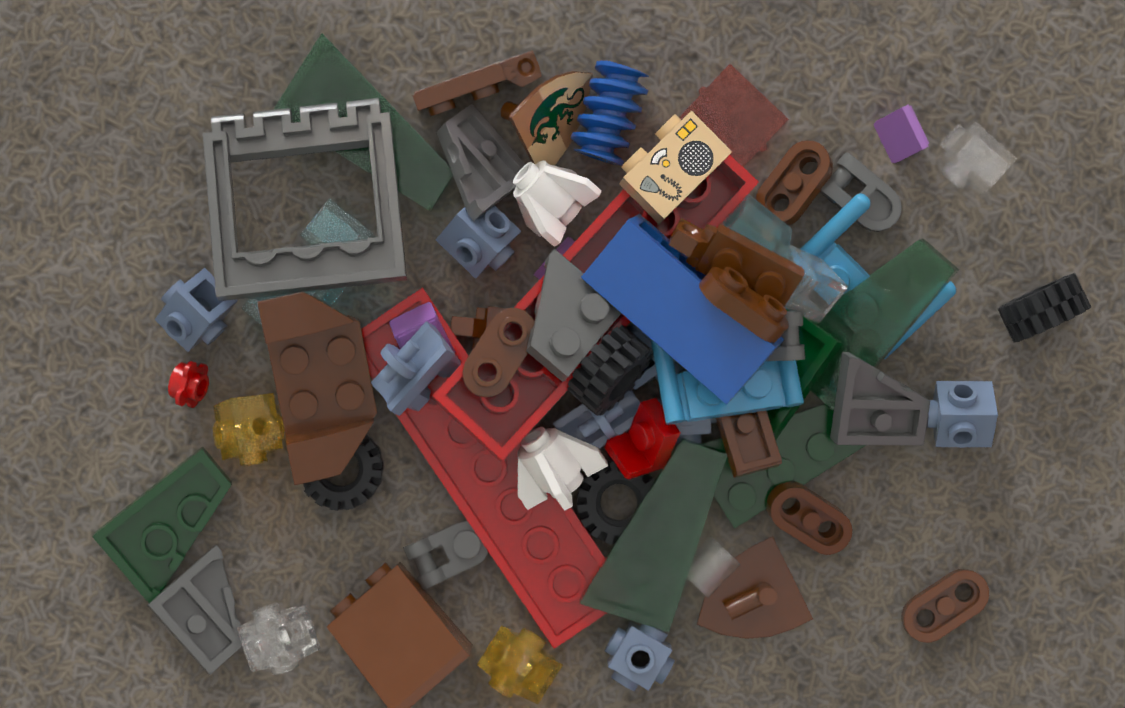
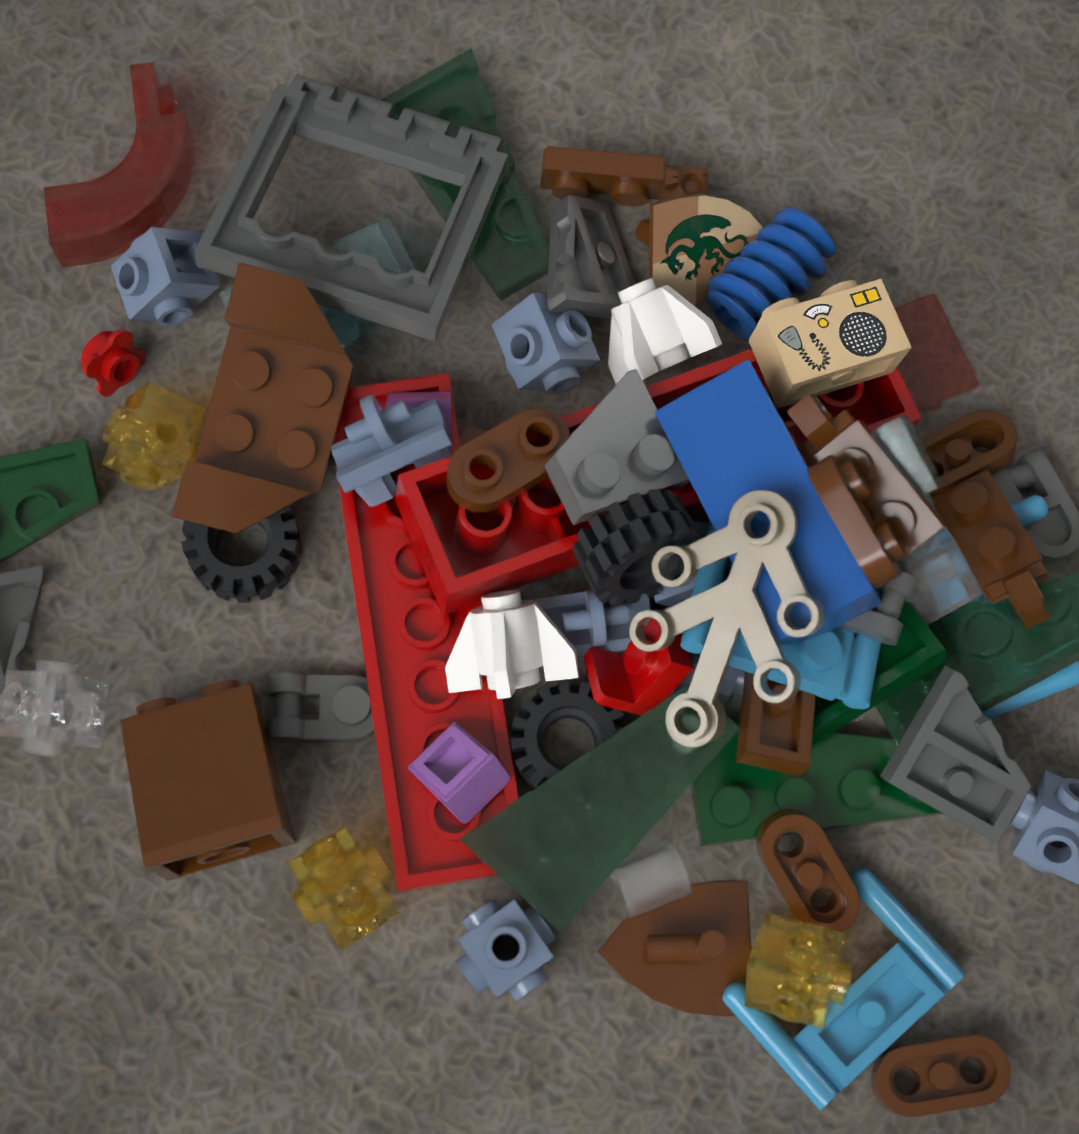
camera: 20 degrees right, 15 degrees down
(146, 249) = (106, 214): none -> clear red arch
(558, 558) = (460, 772): none -> medium lavender slope
(692, 394) = (734, 609): none -> plant
(828, 585) = (797, 971): none -> clear yellow brick
(842, 248) = (995, 545): none -> reddish brown hinge
(884, 587) = (876, 1008): none -> dark azure plate

